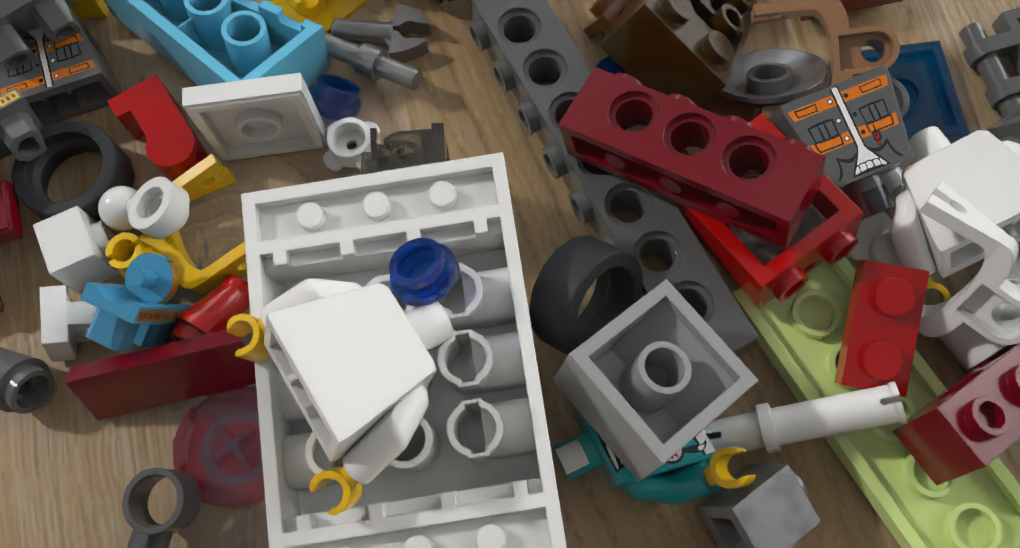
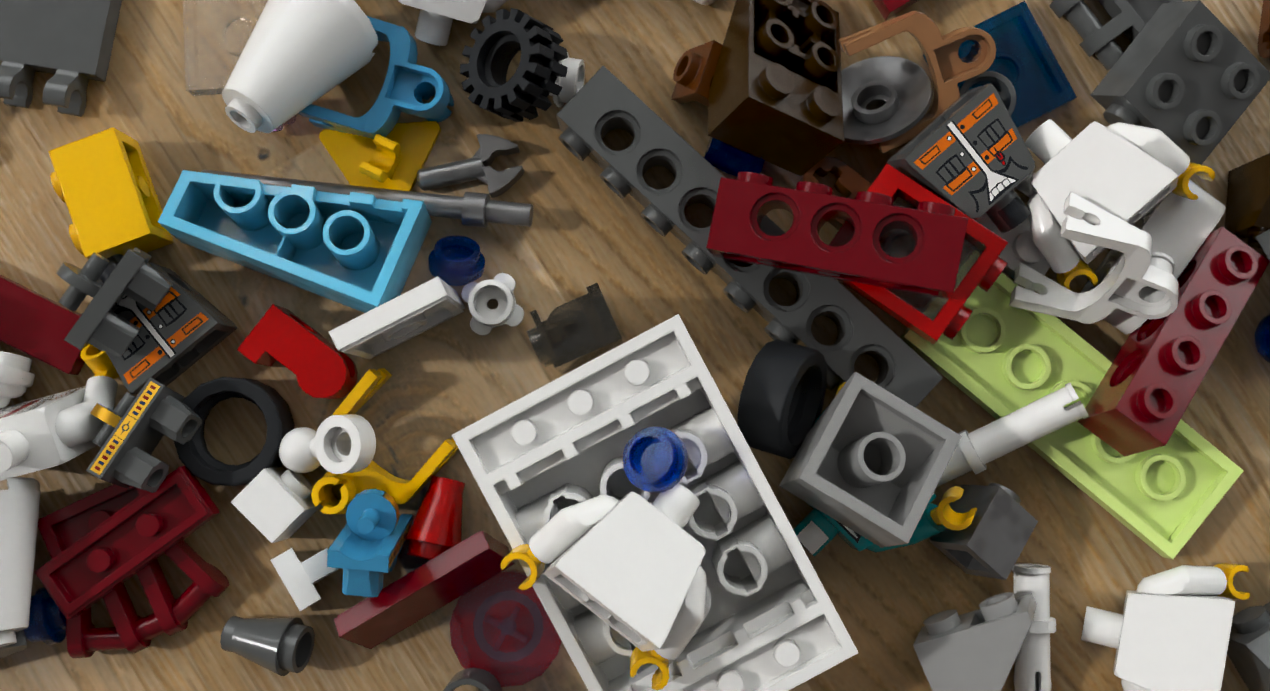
camera: 25 degrees left, 15 degrees up
(881, 325) = (1046, 332): red plate -> none

